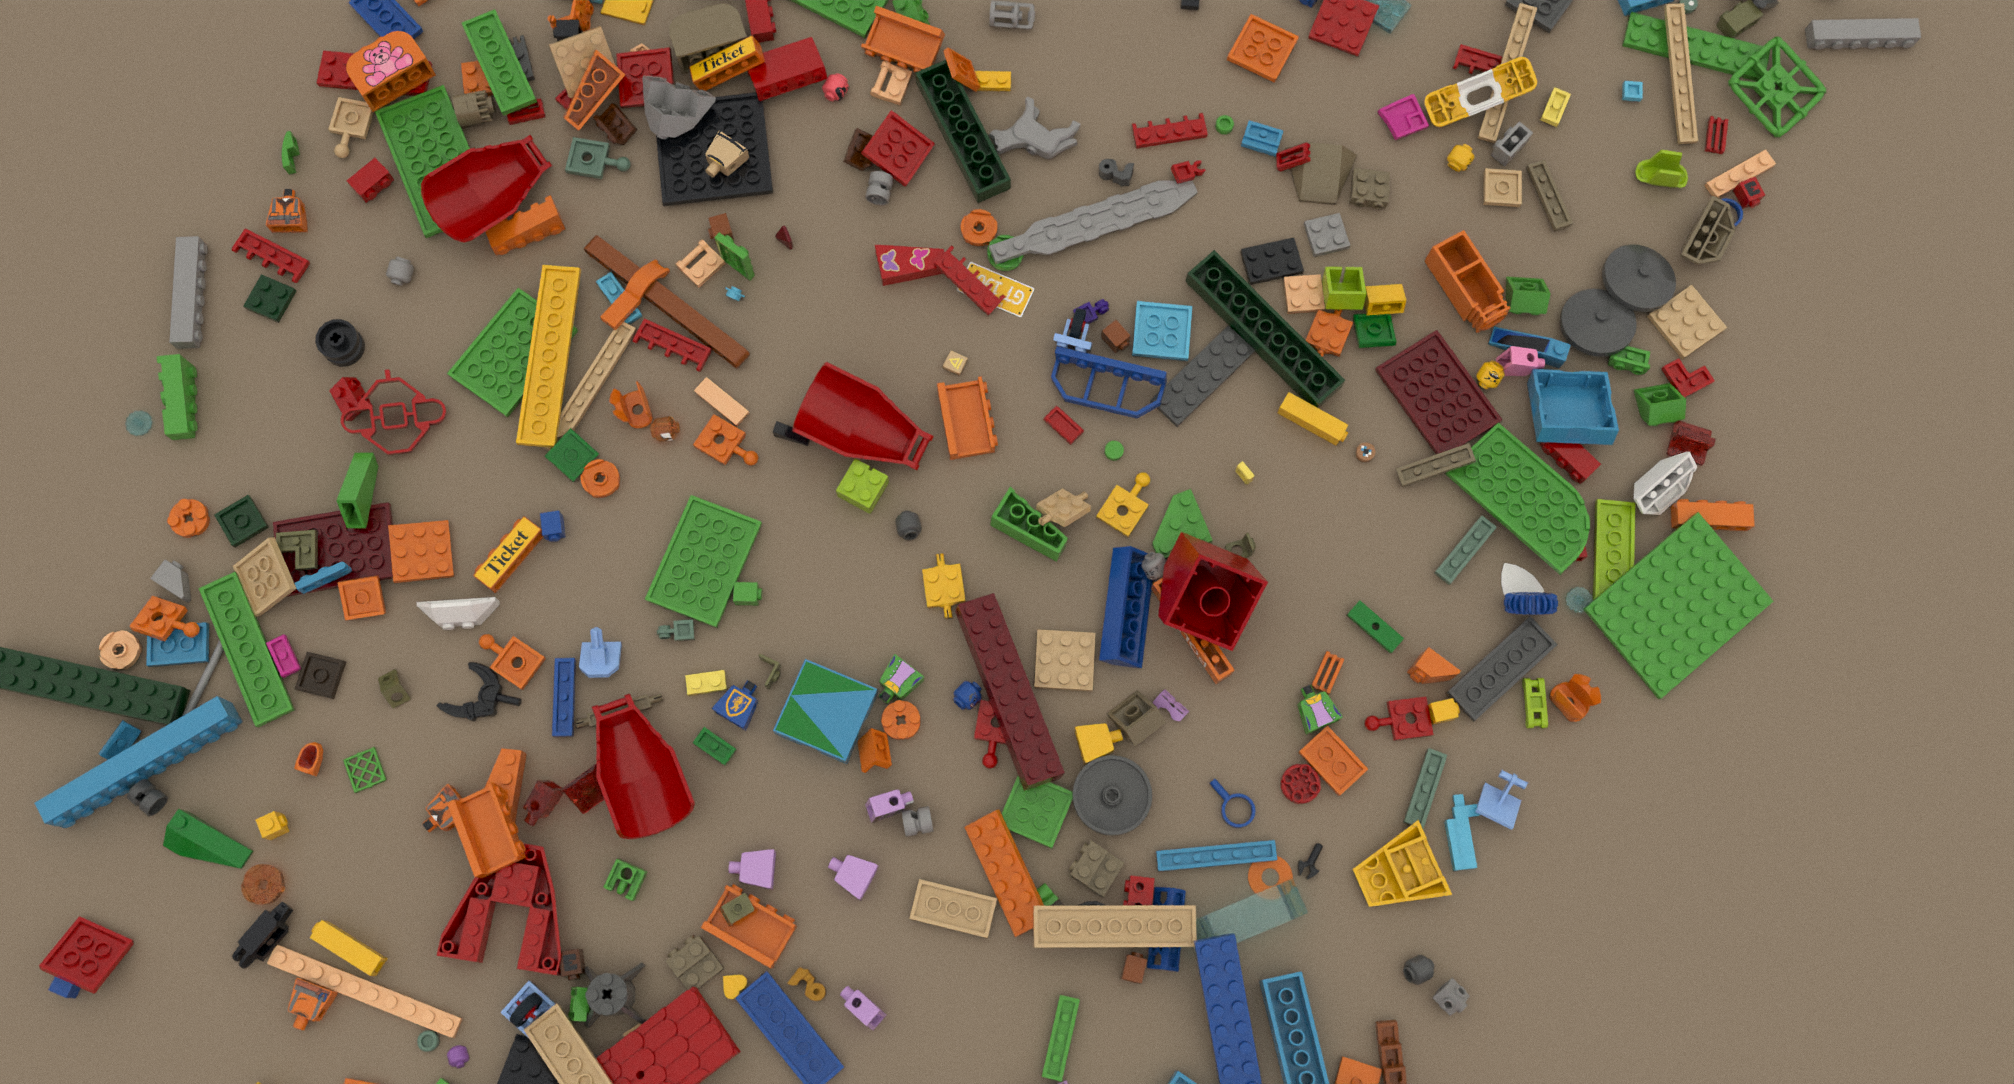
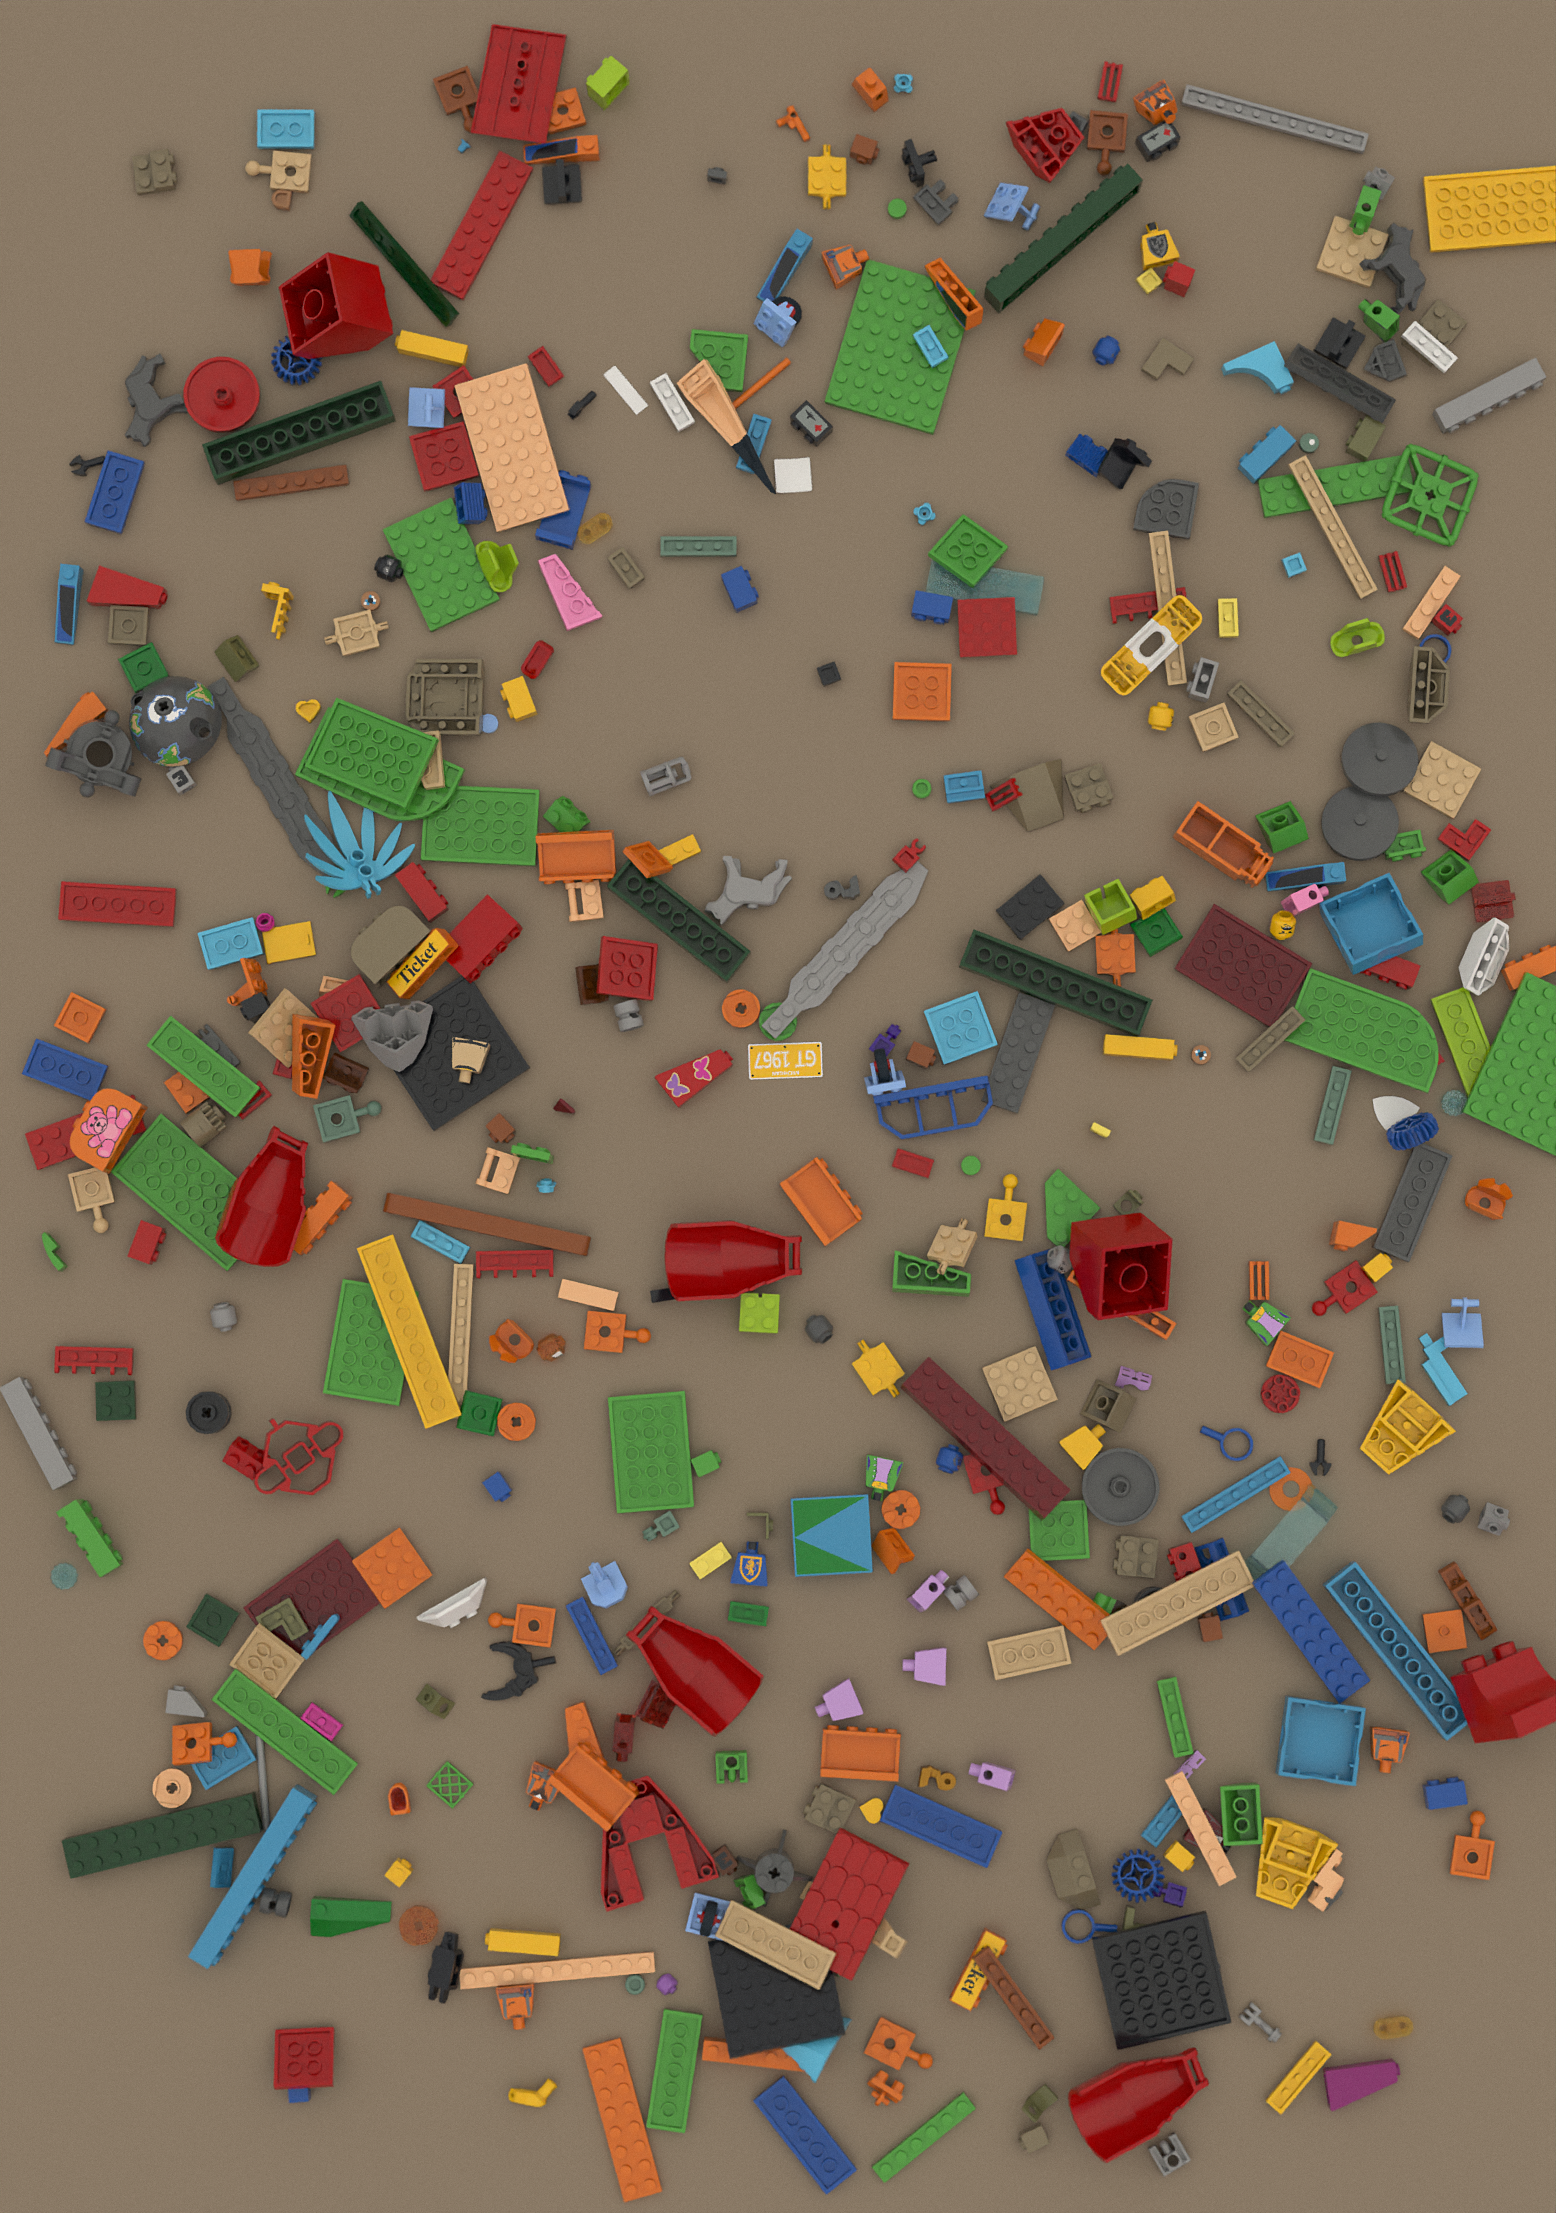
camera: 20 degrees left, 10 degrees up
(287, 214) = (86, 1312): torso -> none
(320, 675) = (363, 1722): dark brown tile -> none
(357, 490) = (306, 1541): bright green slope -> none
(361, 597) = (363, 1636): orange plate -> none
(509, 554) = (472, 1533): brick -> none
(632, 296) = (454, 1232): orange piece -> none
(736, 909) = (843, 1746): olive bracket -> none
(835, 87) = (534, 932): coral head -> none
(955, 363) = (784, 1152): tan tile -> none
(968, 282) = (759, 1070): red hinge -> none
(1169, 132) = (873, 821): red hinge -> none
(1326, 235) = (1069, 855): light grey plate -> none
(1384, 635) = (1294, 1220): green tile -> none
(1404, 117) = (1088, 699): dark pink plate -> none
(1535, 702) = (1455, 1218): lime plate -> none

